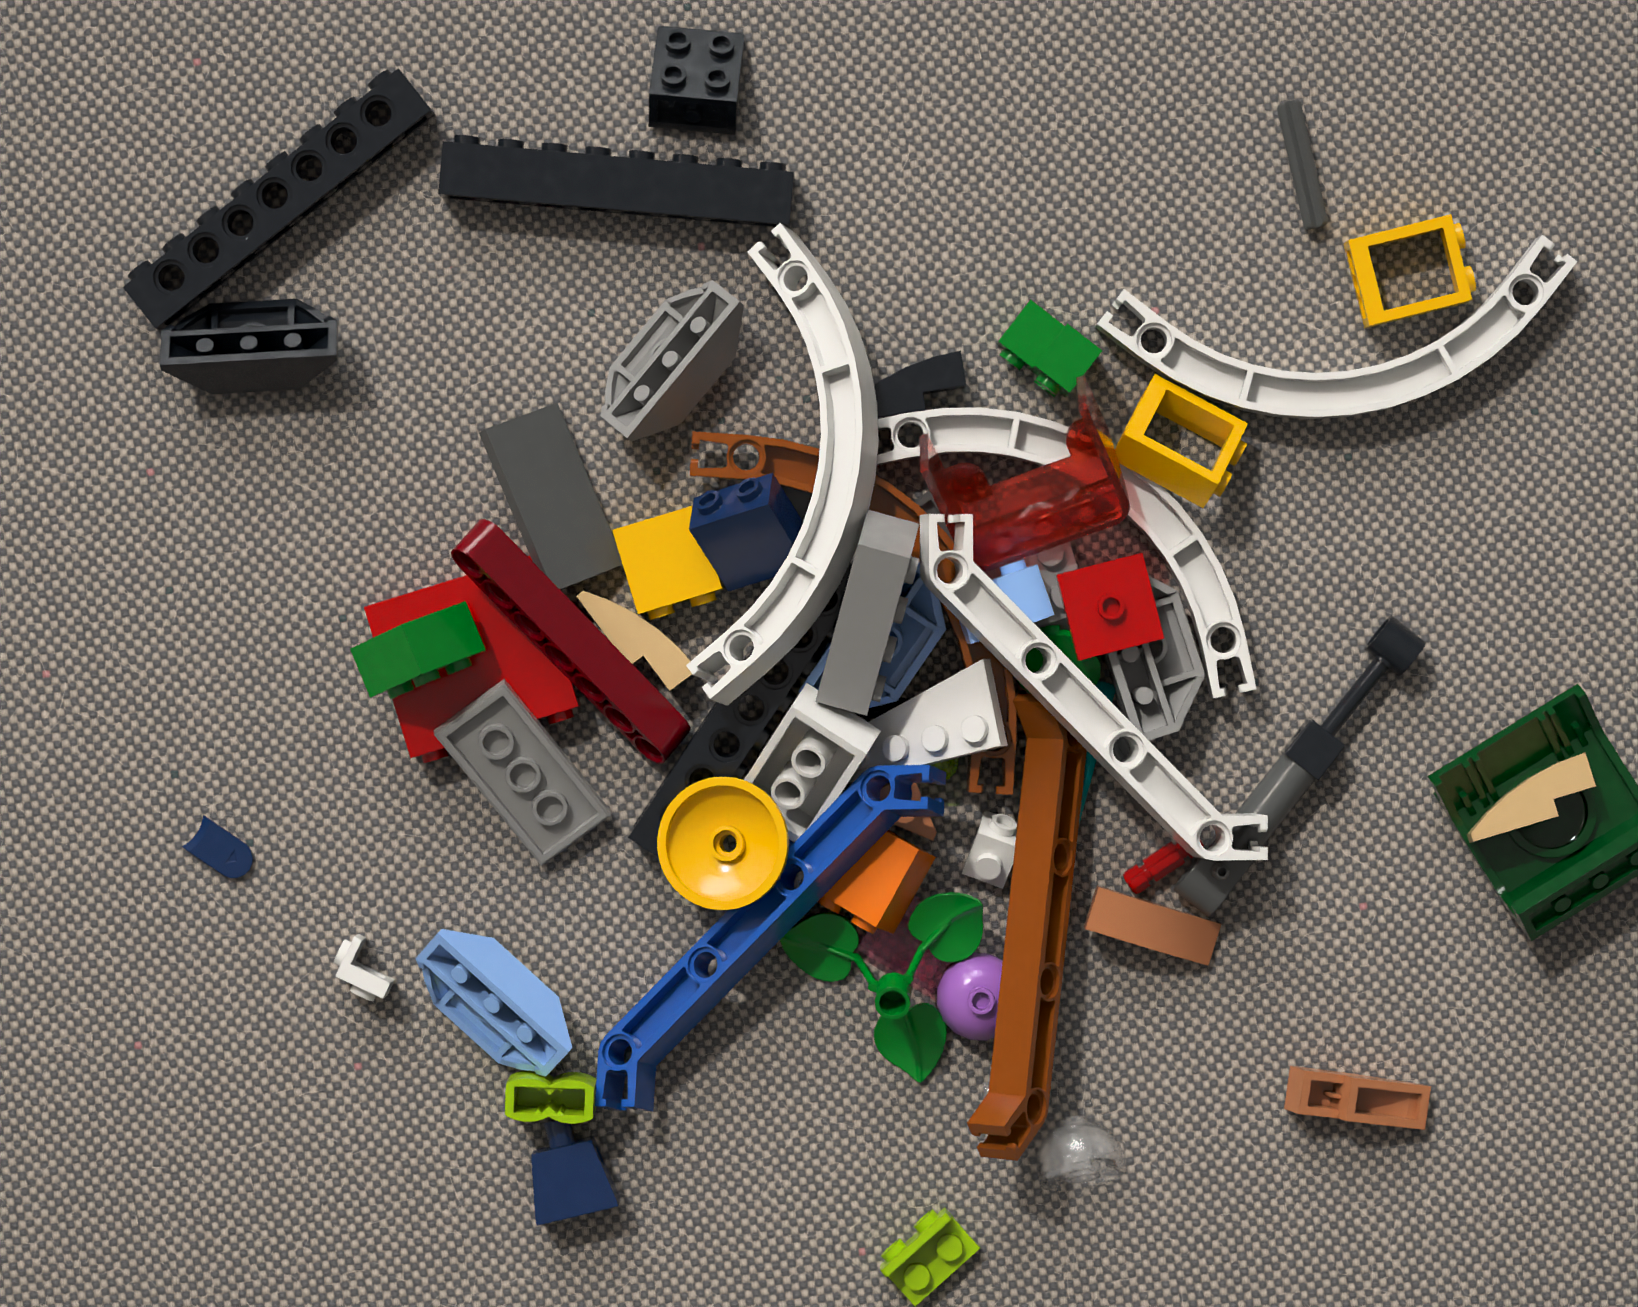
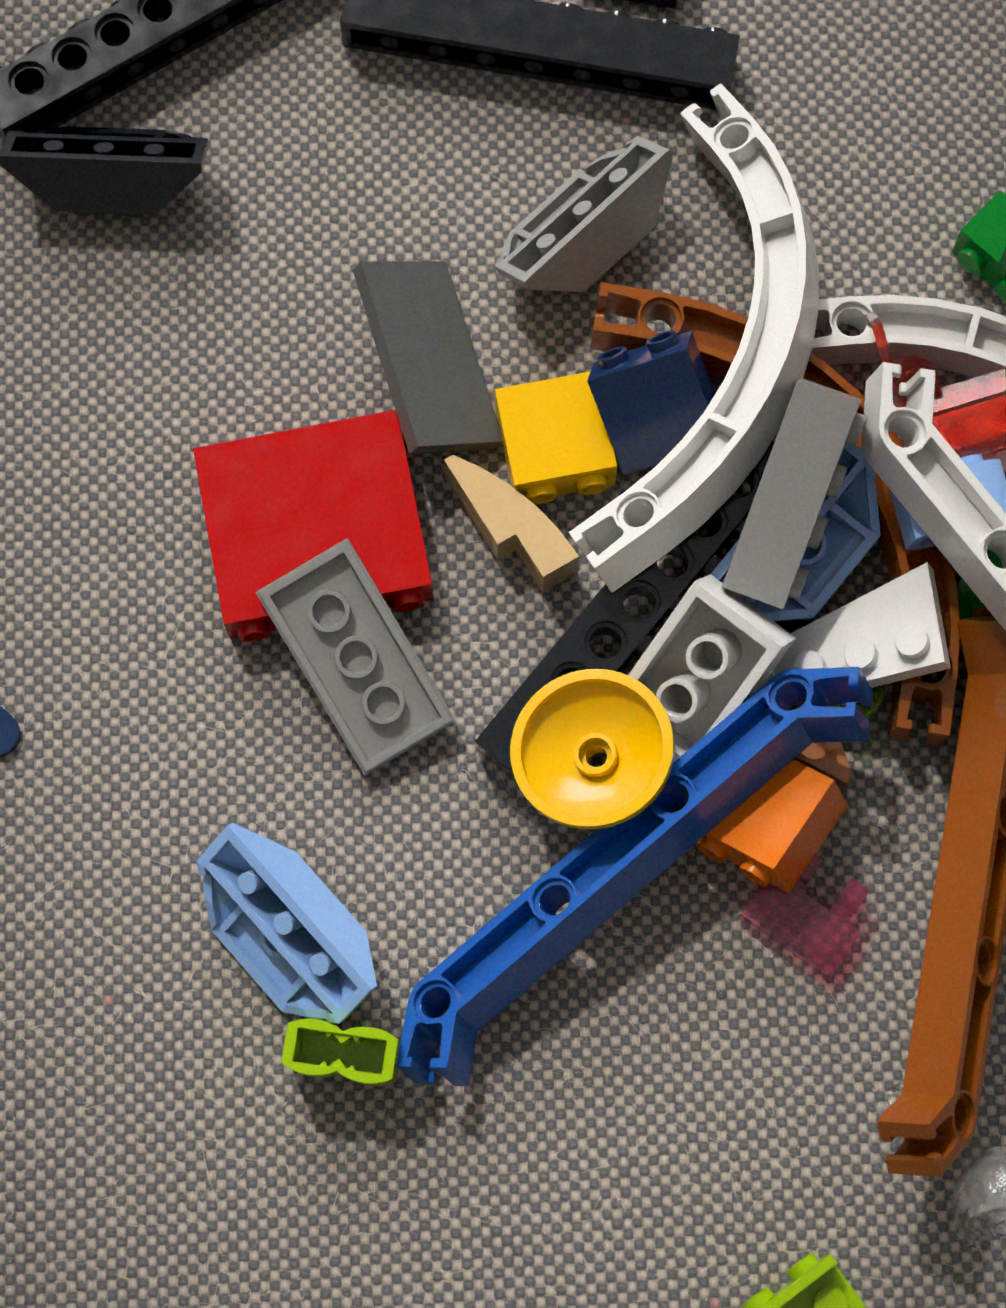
camera: 10 degrees right, 15 degrees down
(364, 980) = (131, 889): white bracket -> none
(418, 651) = (248, 482): green brick -> none
(570, 641) = (432, 504): dark red beam -> none
(570, 1176) = (352, 1159): dark blue torso -> none
(904, 1035) = (796, 1028): green plant -> none
(905, 388) = (871, 270): black slope -> none
(970, 996) = (879, 987): medium lavender cylinder -> none
(992, 849) = (916, 810): white bracket -> none

